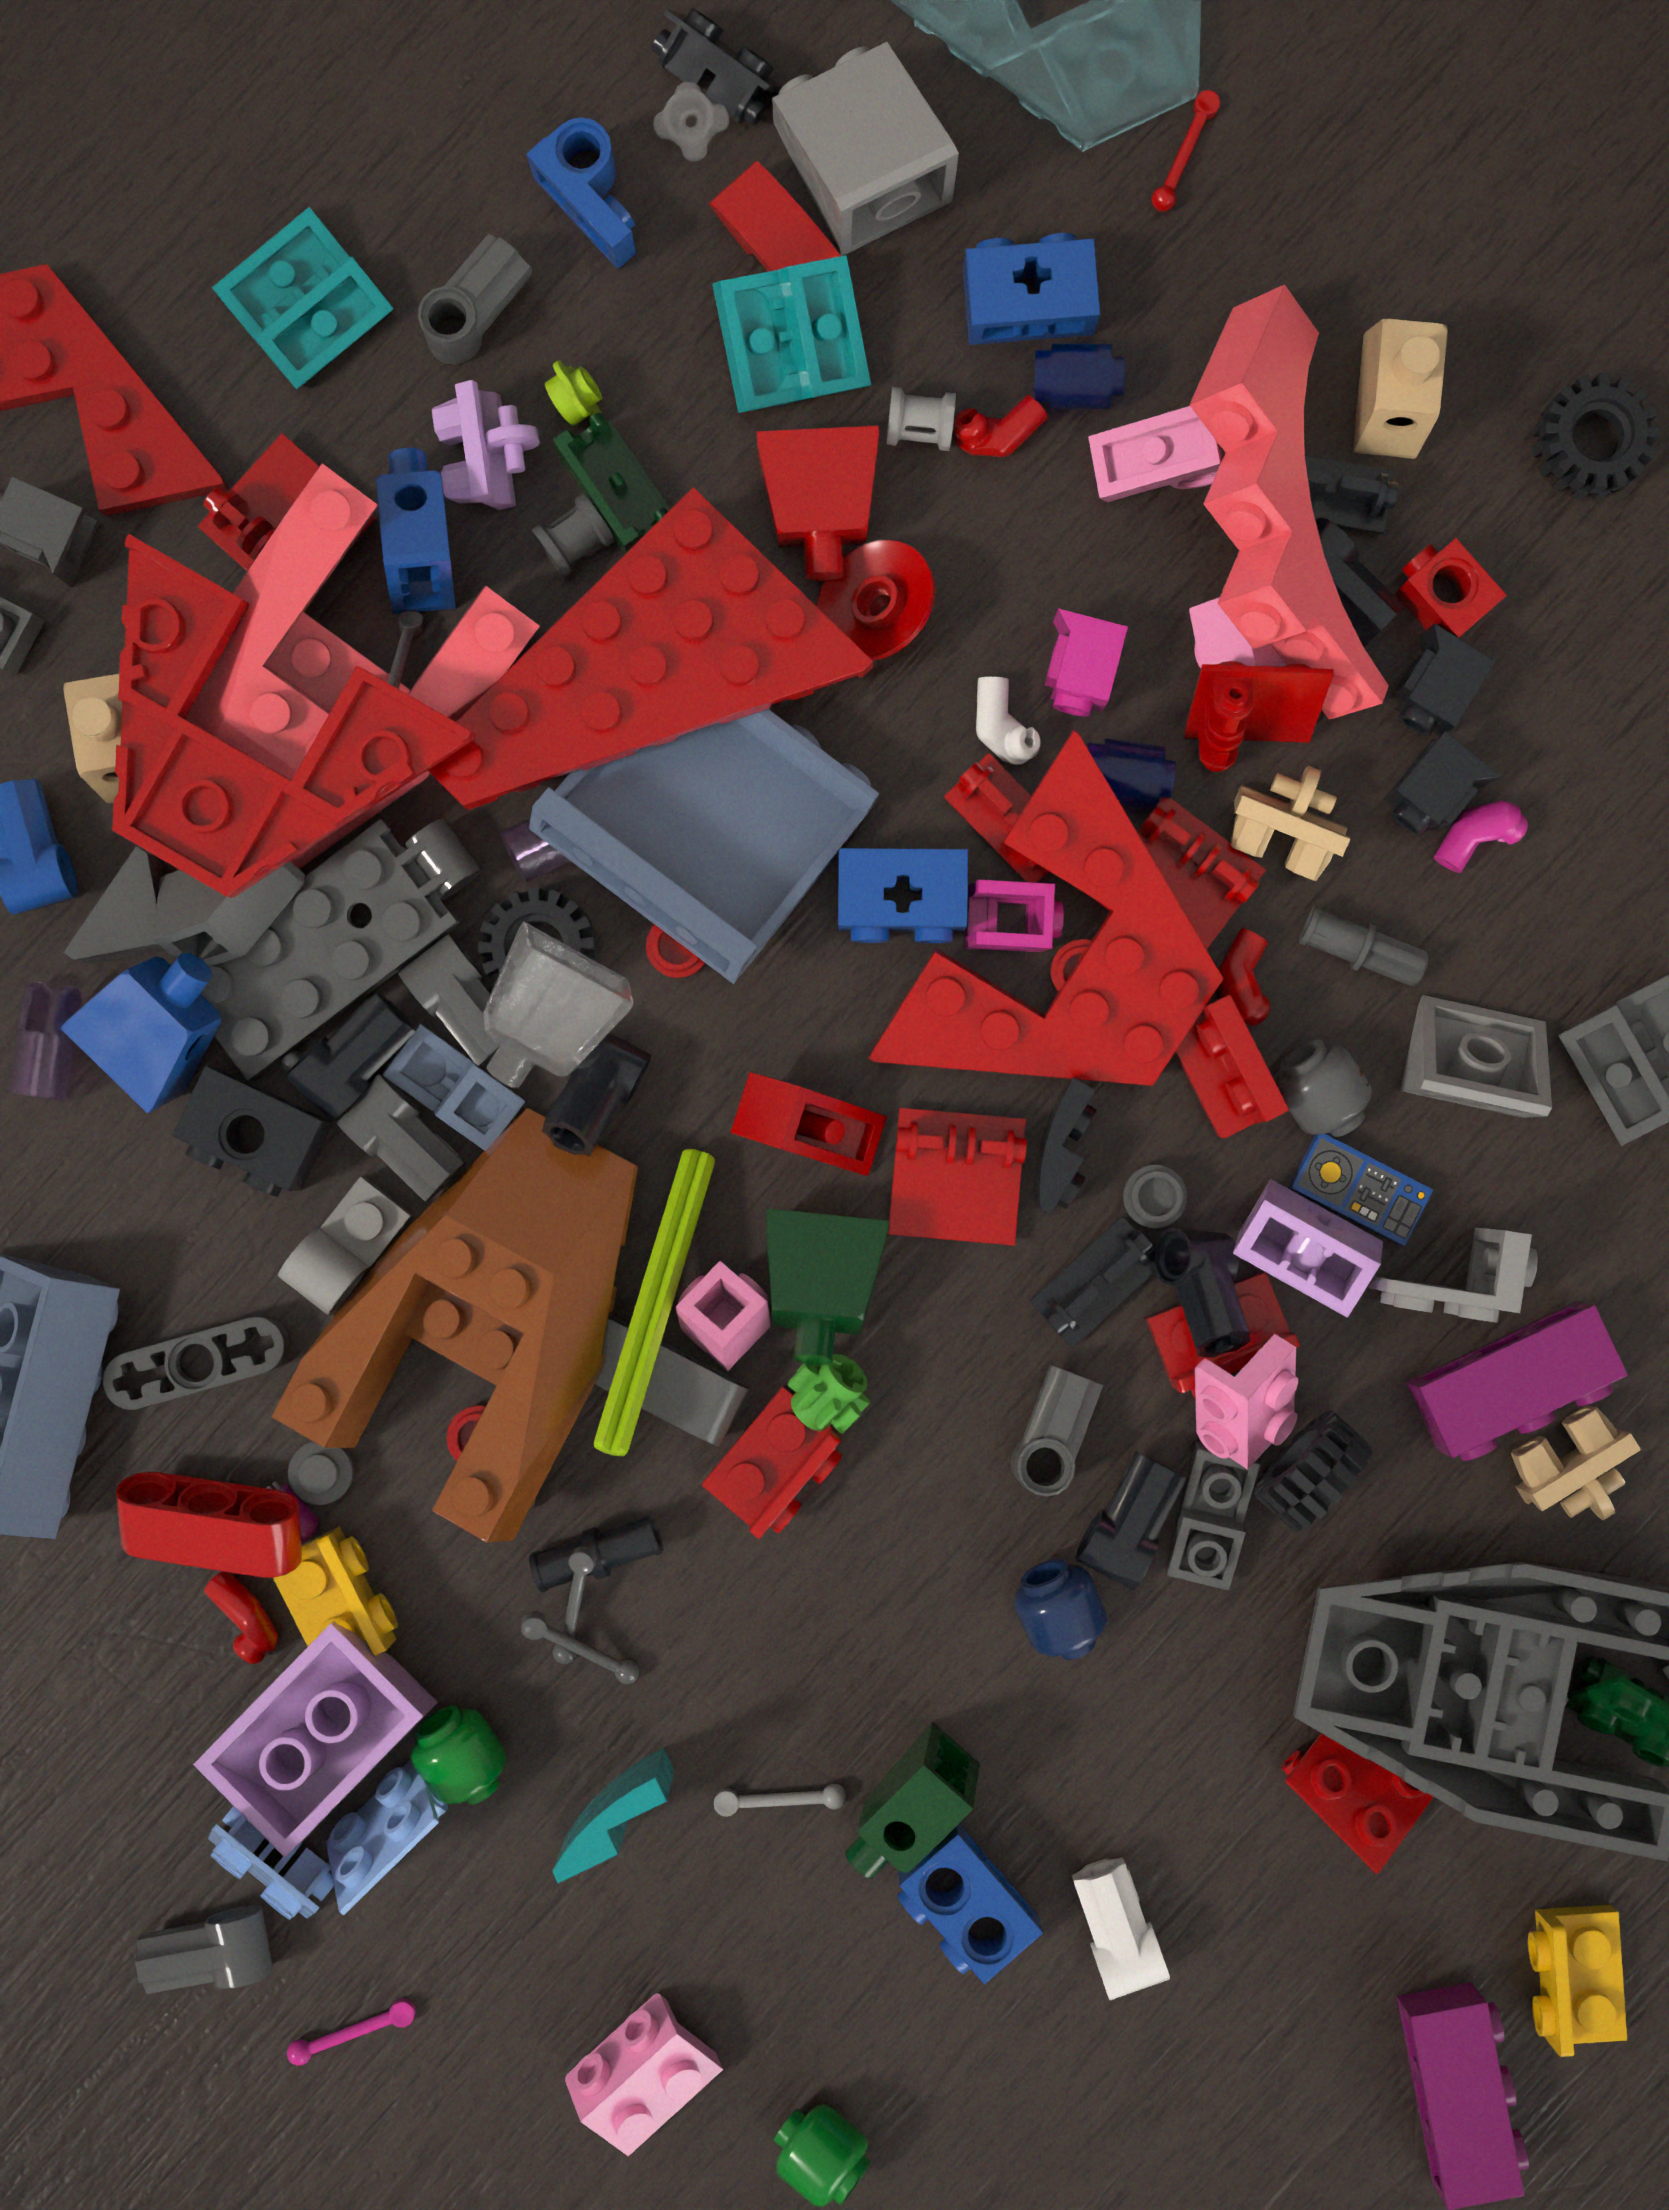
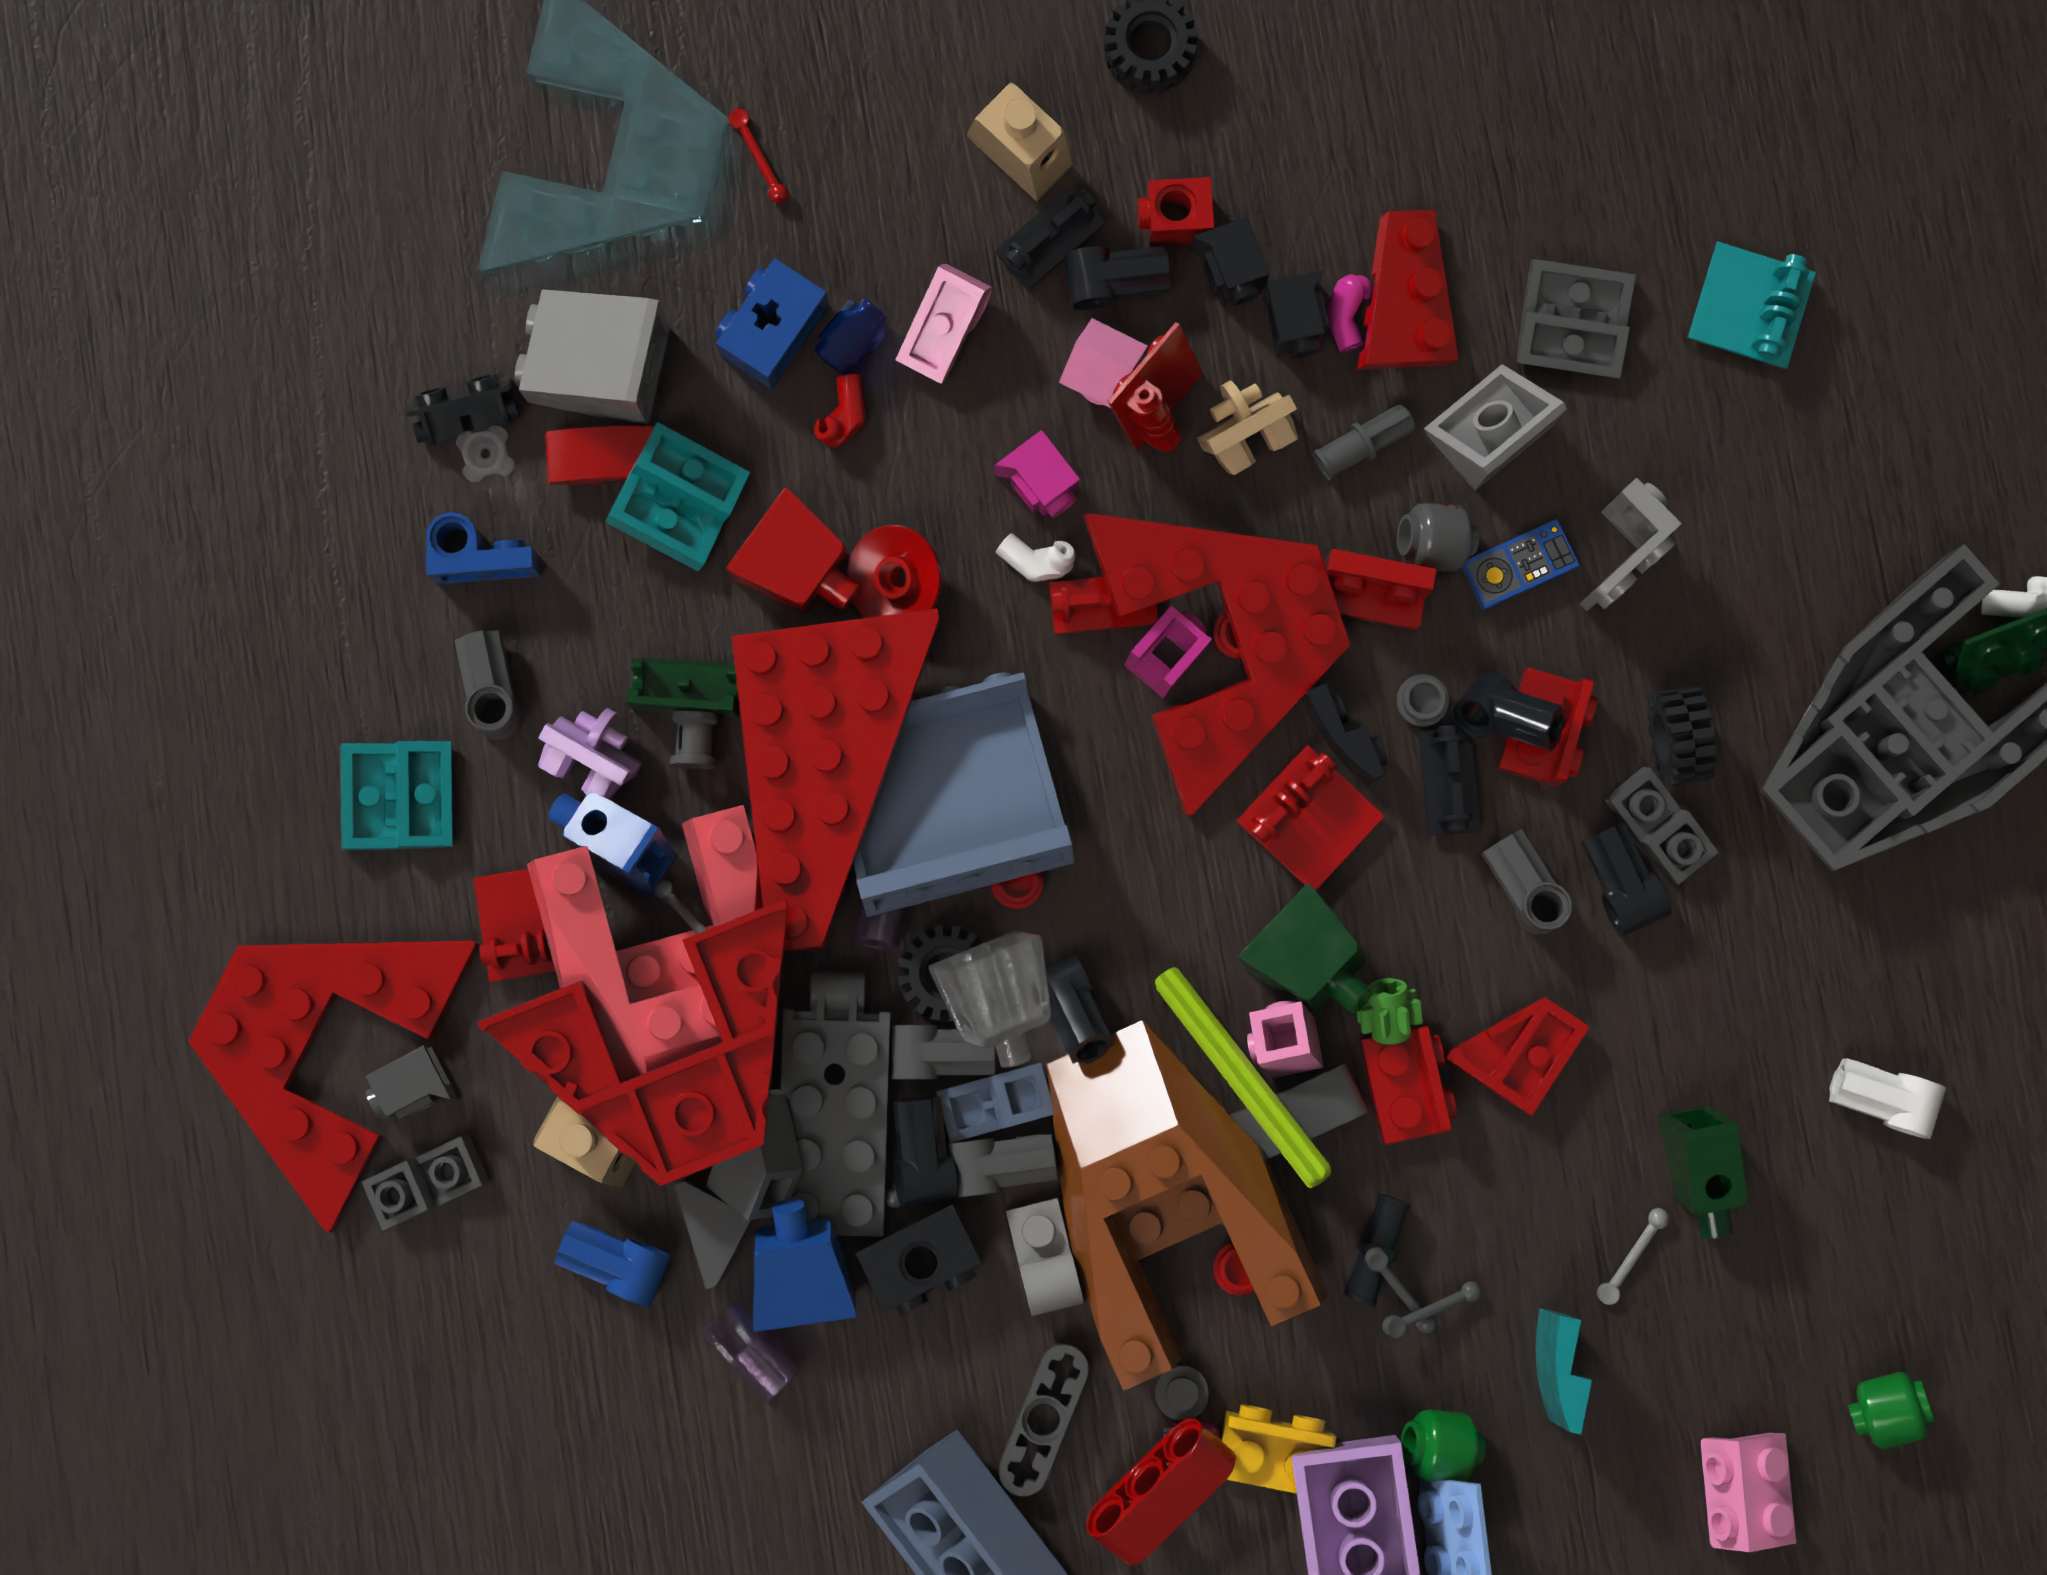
camera: 50 degrees left, 5 degrees down
(247, 1614) = (1238, 1516): red arm -> none
(573, 393) = (602, 666): lime plate -> none
(808, 1124) = (1201, 887): red slope -> none
(889, 1548) = (1521, 1053): none -> red wing
(921, 418) = (798, 457): light grey bush -> none
(933, 873) = (1104, 678): blue brick -> none
(979, 1894) = (1795, 1172): blue brick -> none
(1060, 1609) = (1647, 971): dark blue head -> none
(1135, 771) = (1137, 496): clear blue brick -> none
(1199, 867) = (1230, 505): red hinge -> none
(1240, 979) = (1325, 536): red arm -> none
(1248, 1411) = (1612, 744): bright pink bracket -> none
(1262, 499) = (1027, 281): coral arch -> none
(1309, 1248) = (1534, 626): lavender brick -> none
(1356, 1798) = (1916, 873): red hinge -> none
(1517, 1381) = (1722, 561): magenta brick -> none
(1535, 886) = (1410, 298): none -> red wing
(1598, 1450) = (1804, 588): tan hips -> none

